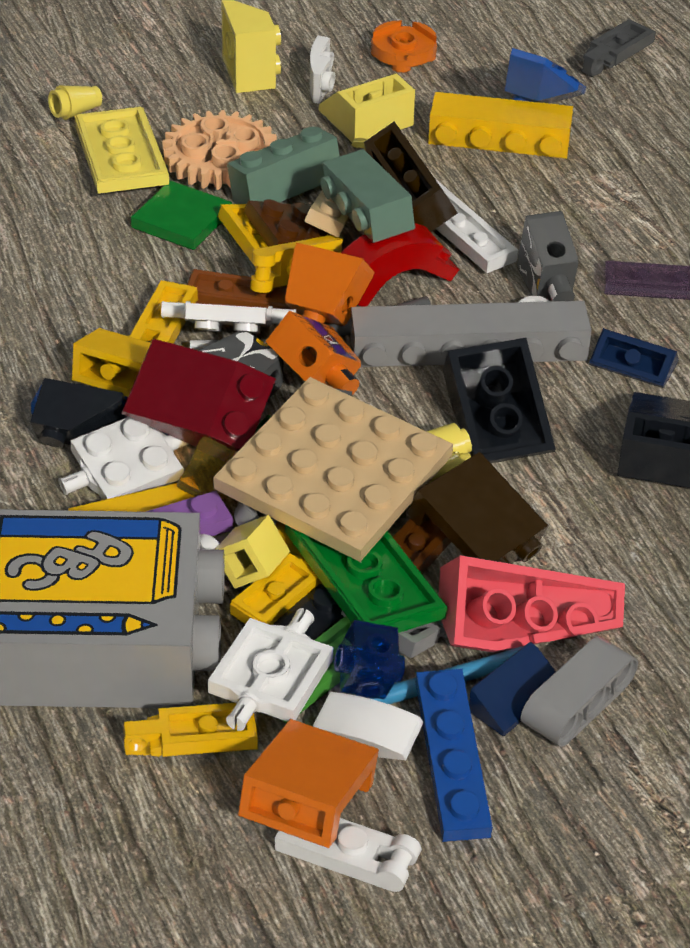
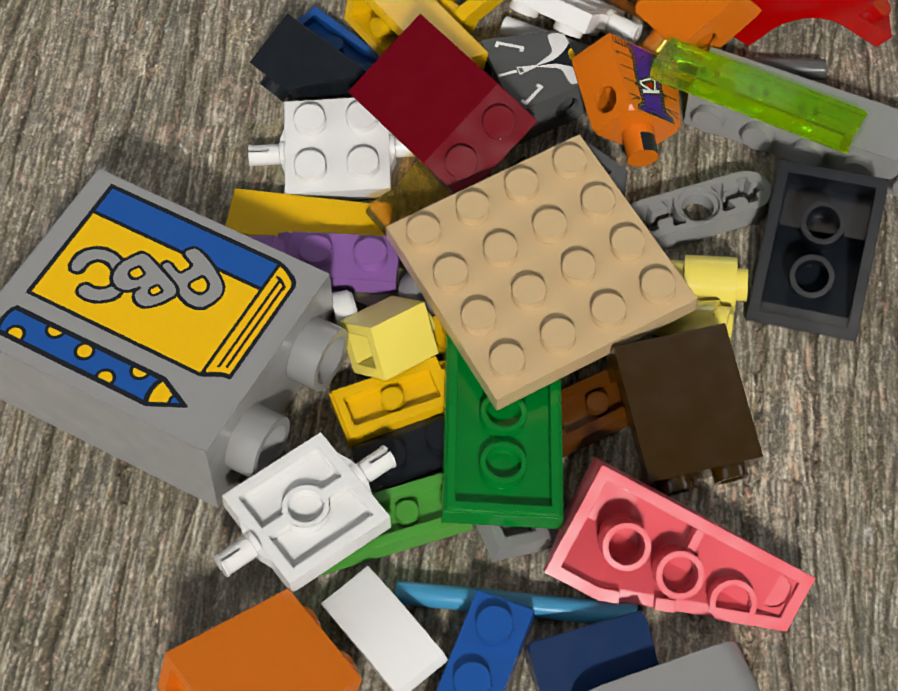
camera: 30 degrees right, 15 degrees up
(188, 732) = (182, 543): yellow hinge -> none
(369, 660) = (424, 552): clear blue brick -> none
(406, 321) = (759, 95): none -> clear neon green tile
(410, 399) = (712, 194): none -> light grey beam

